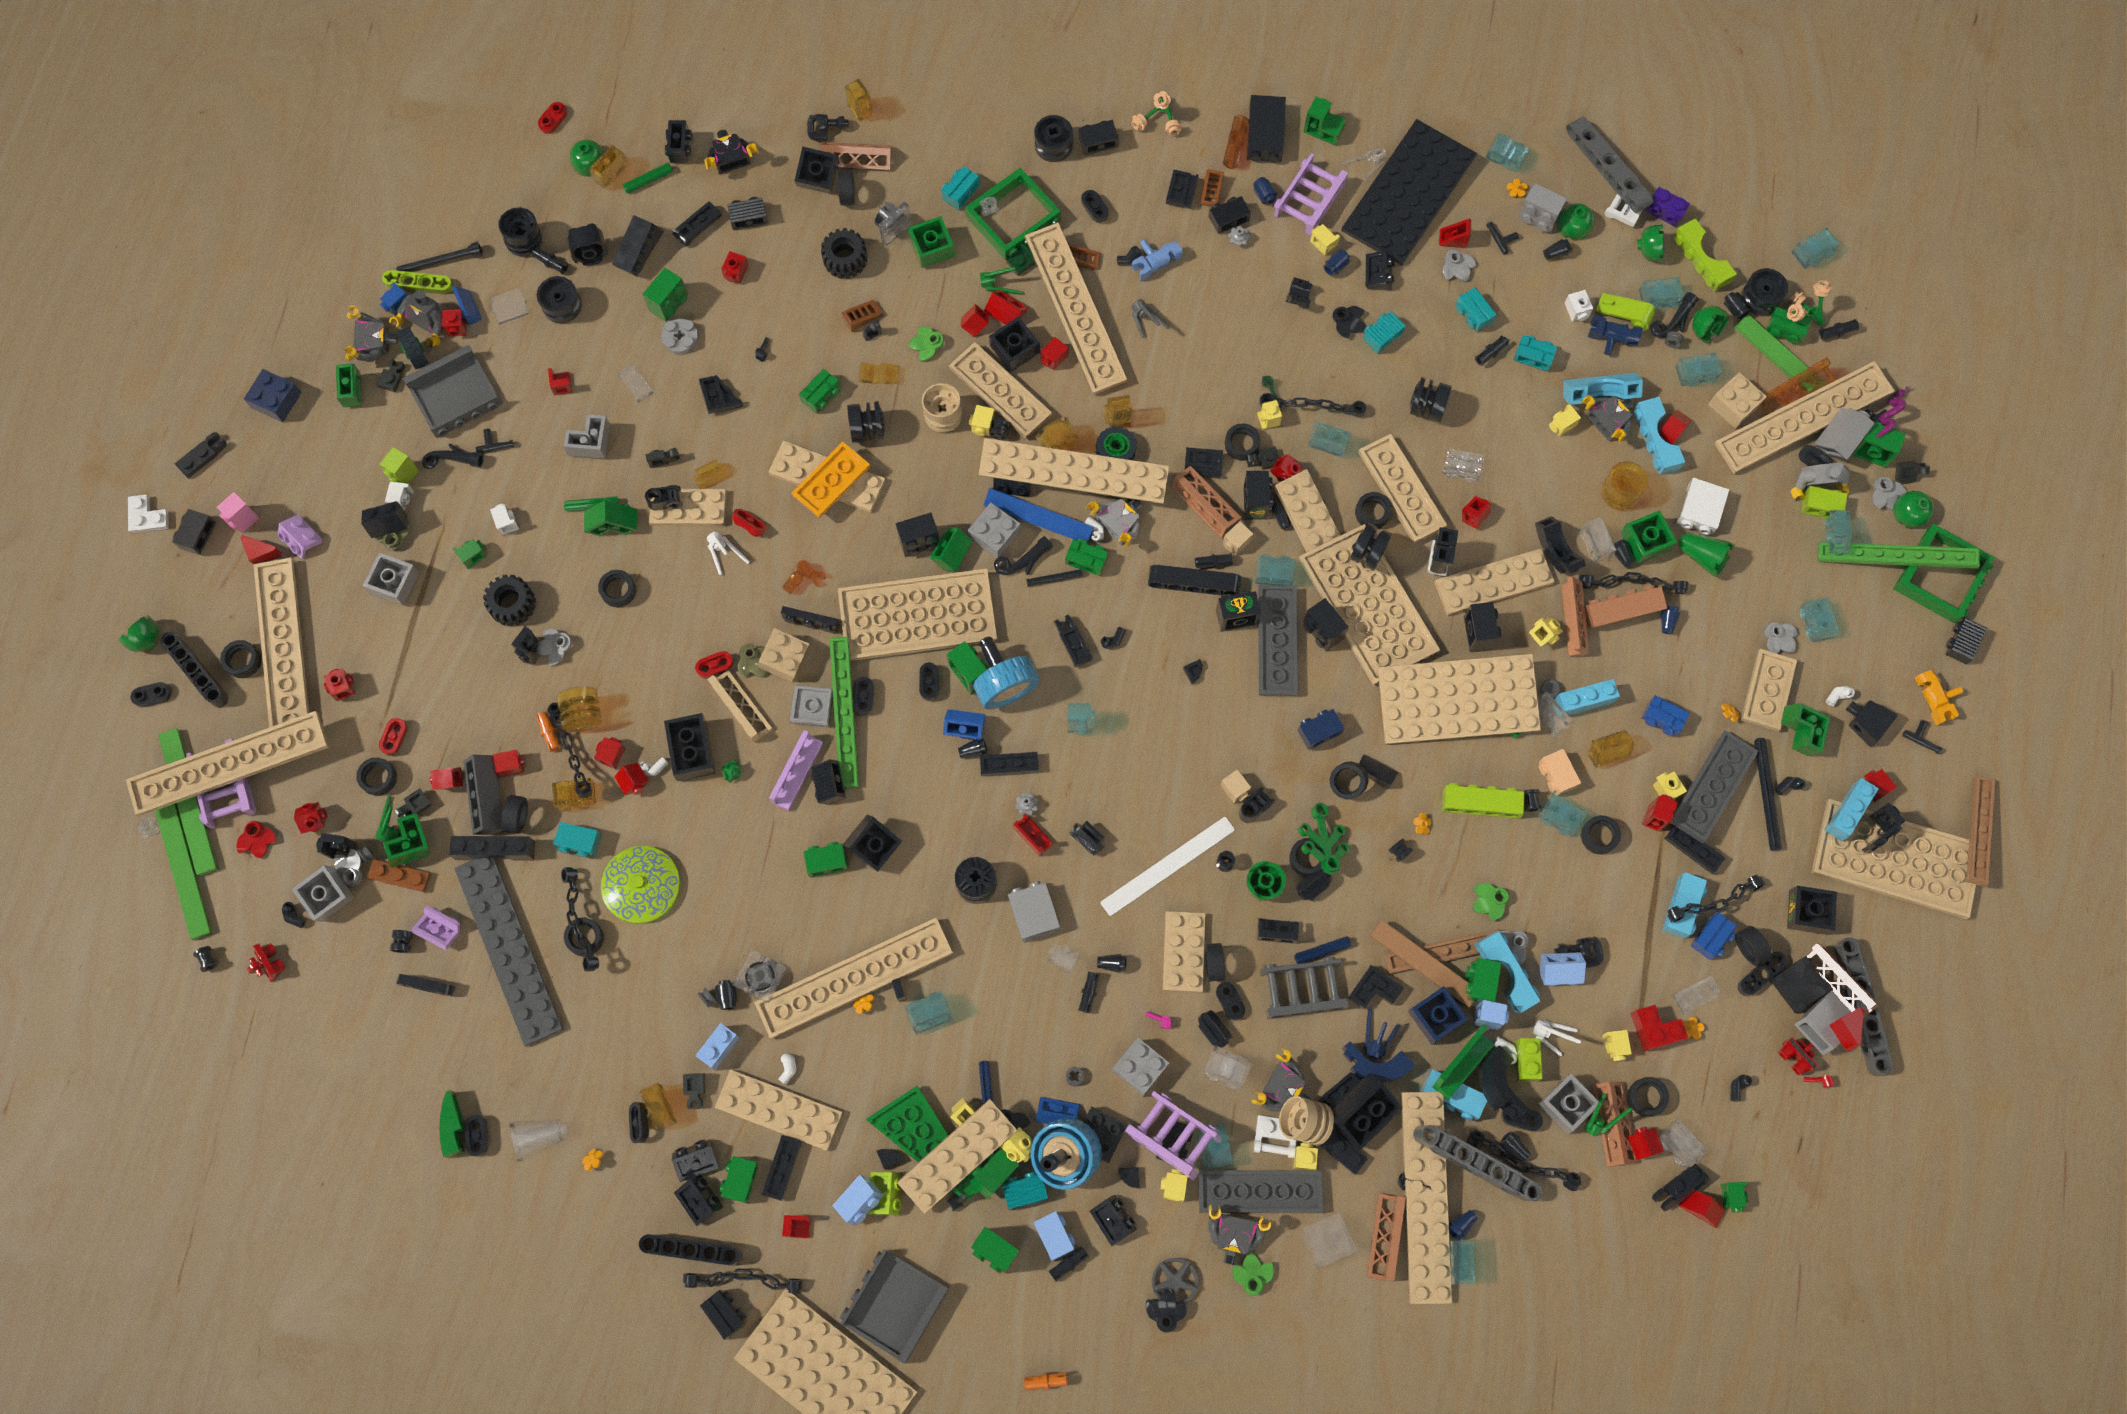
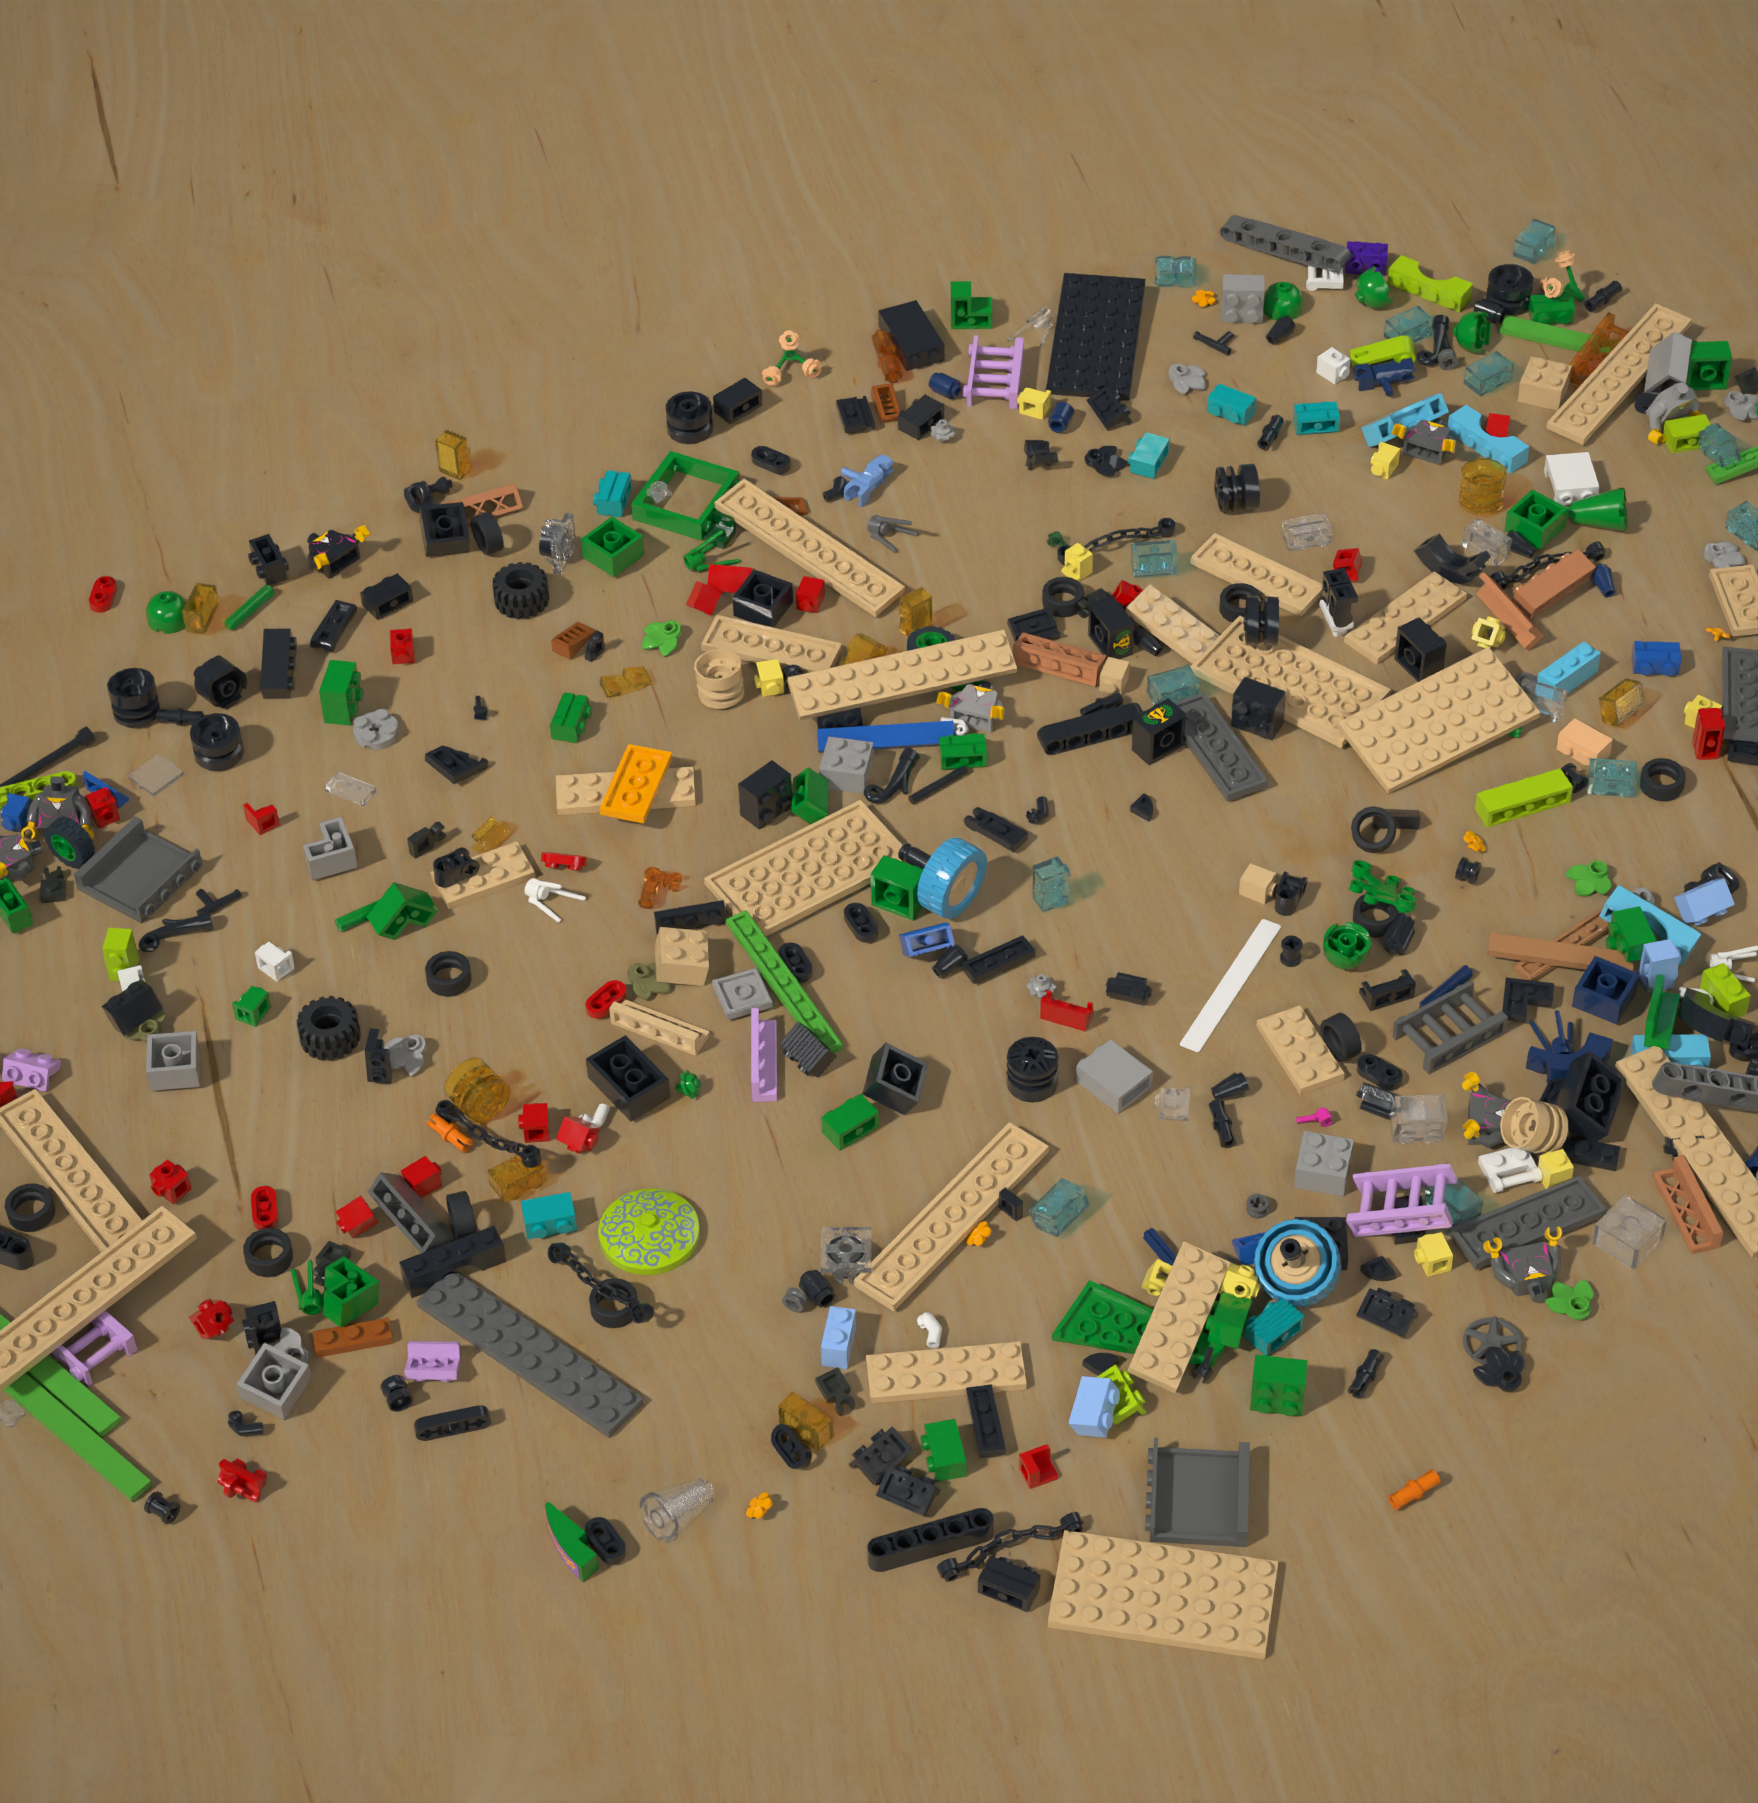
camera: 25 degrees left, 25 degrees down
(255, 842) = (154, 1374): red plate -> none
(365, 853) = (302, 1327): dark grey bush -> none
(865, 422) = (642, 719): black wheel -> none
(1054, 1235) = (1333, 1353): light blue brick -> none
(1320, 729) = (1313, 799): dark blue brick -> none
(1456, 235) = (1169, 351): red slope -> none
(1885, 419) = (1701, 333): magenta animal -> none

